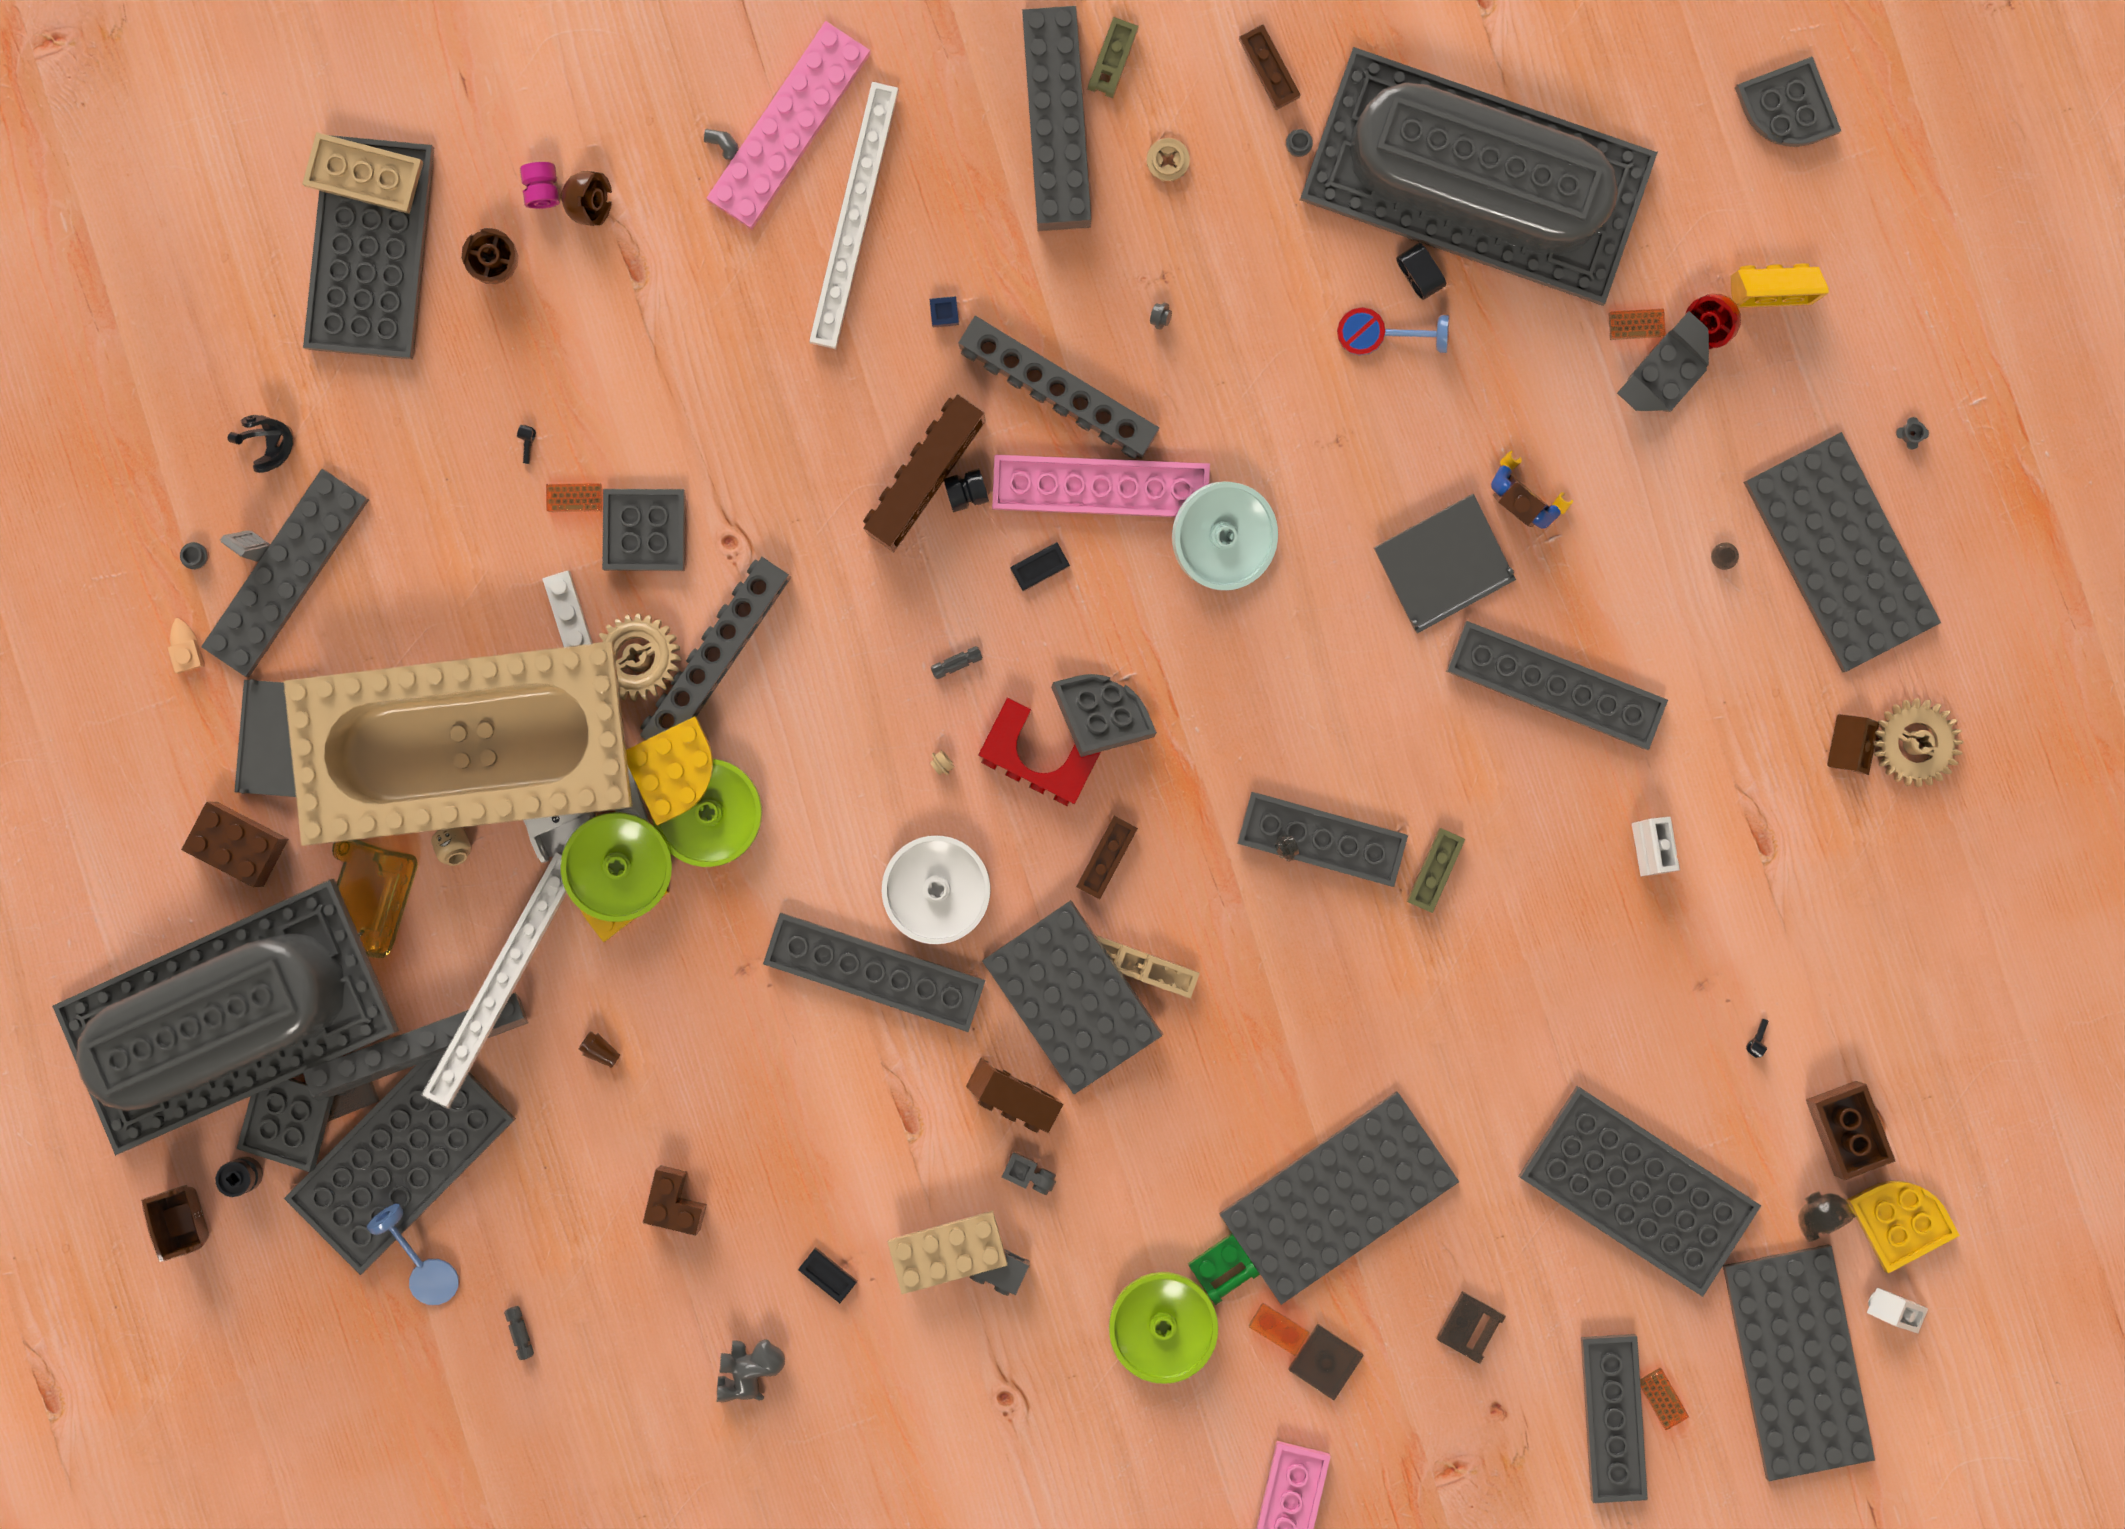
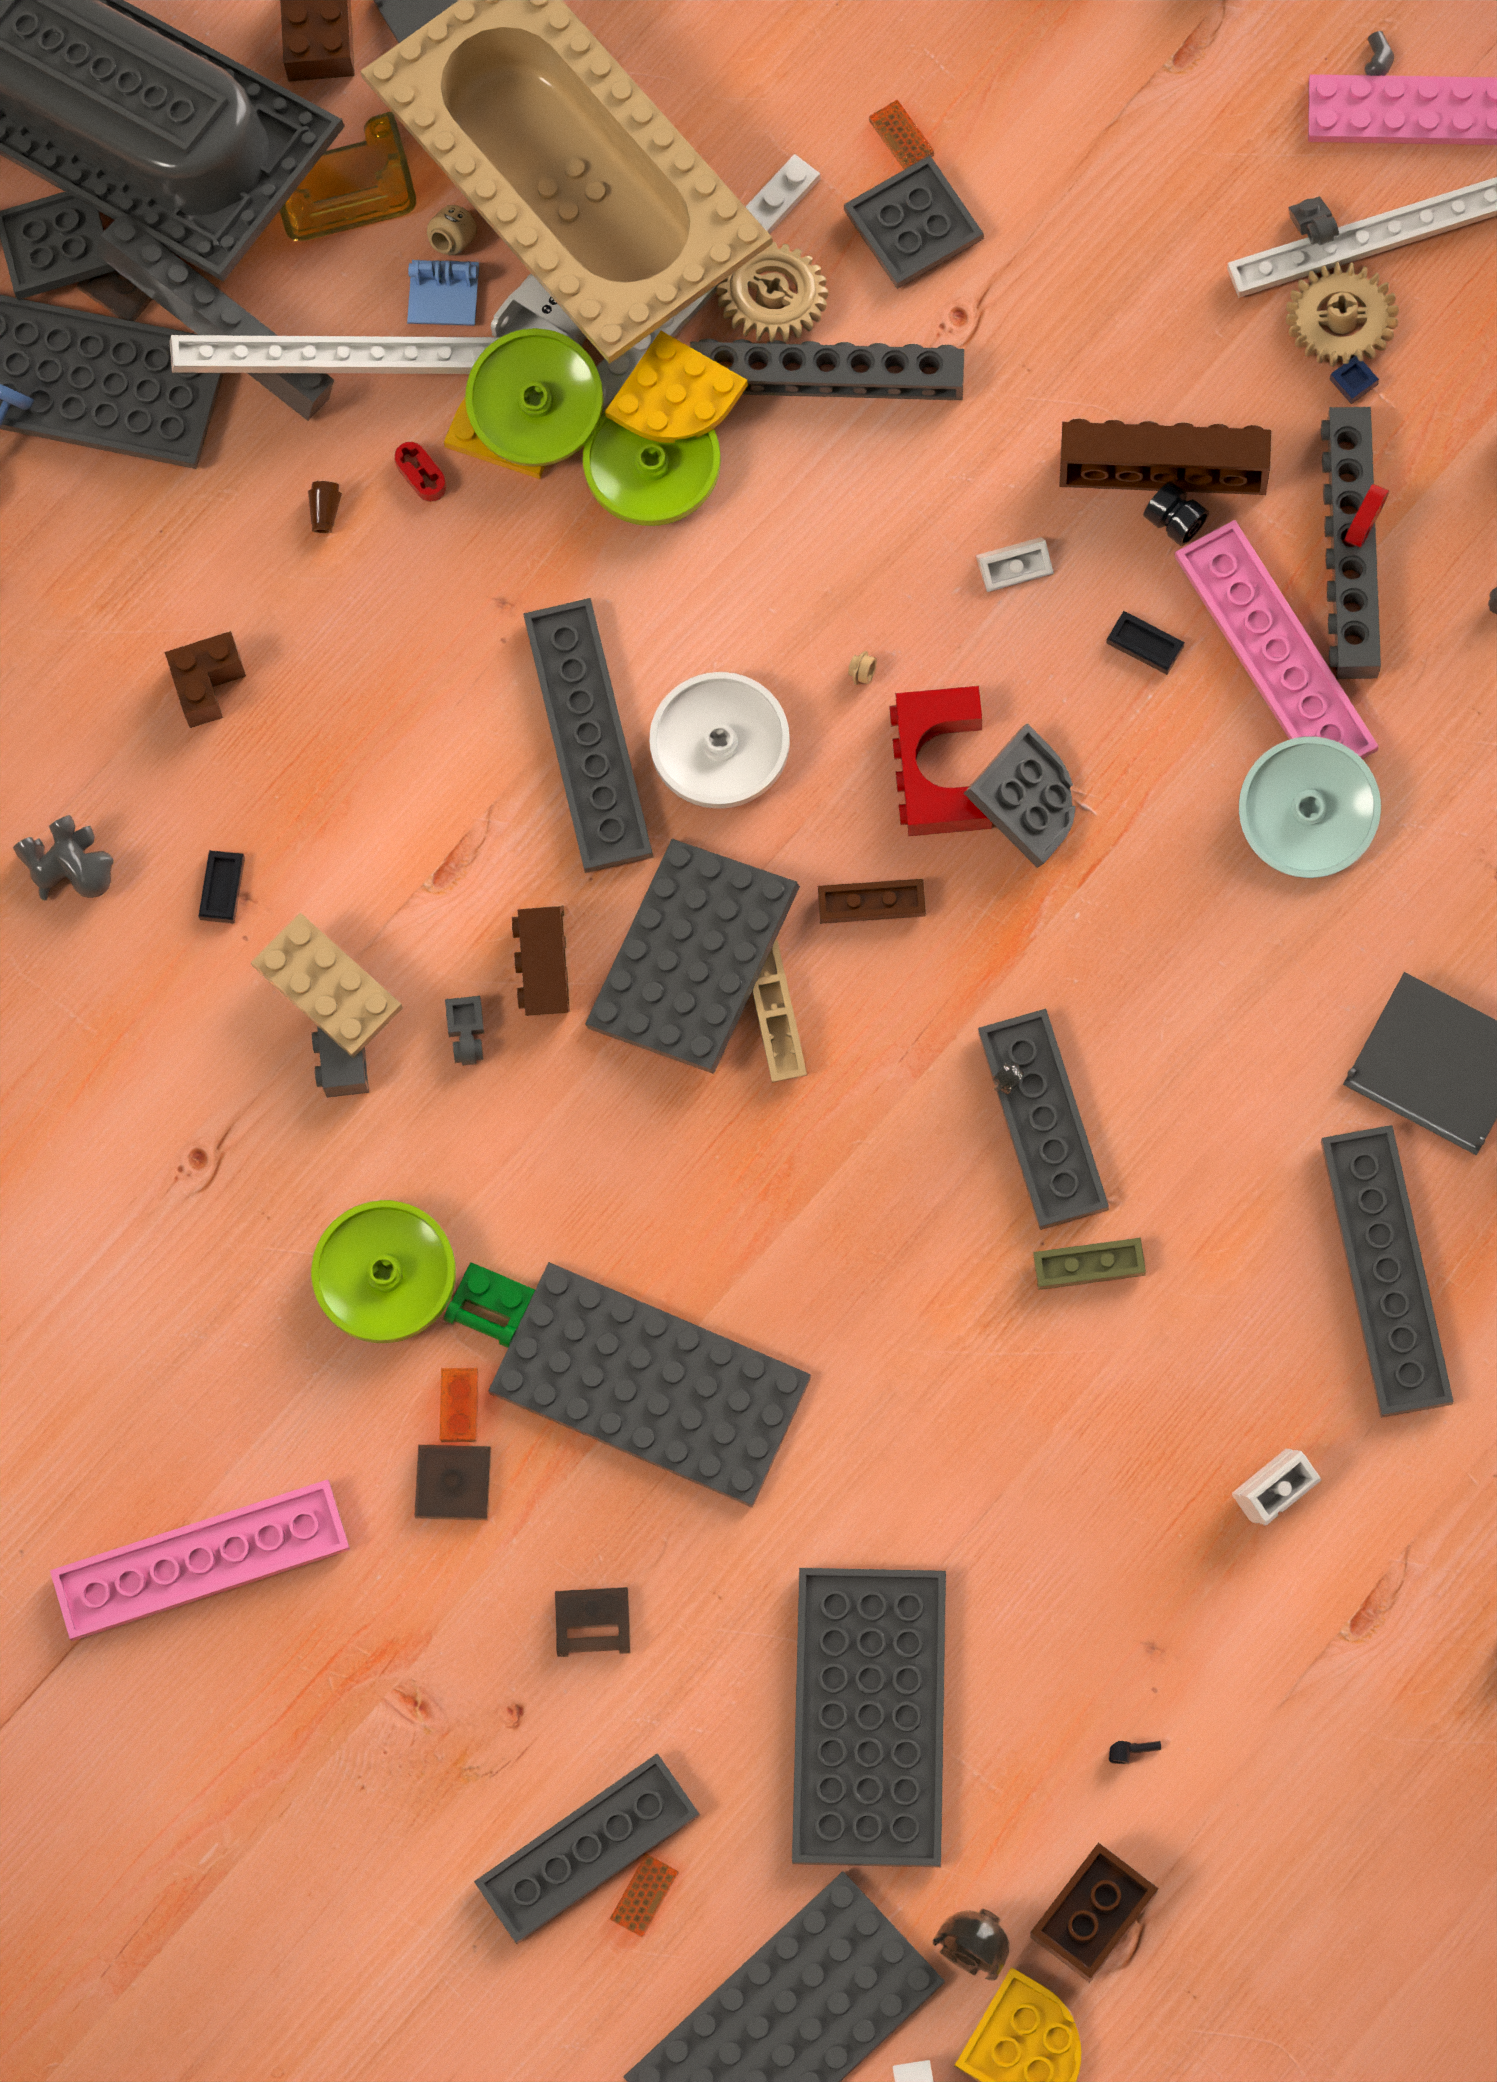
camera: 65 degrees right, 15 degrees down
(492, 876) = (443, 292): none -> light blue hinge
(528, 434) = (937, 53): black hand -> none
(613, 963) = (426, 467): none -> red beam
(814, 263) = (1315, 220): none -> dark grey plate
(906, 267) = (1343, 292): none -> tan gear
(930, 616) = (1015, 564): none -> white slope
(956, 662) = (982, 619): dark grey axle -> none
(1053, 369) = (1366, 515): none -> red beam

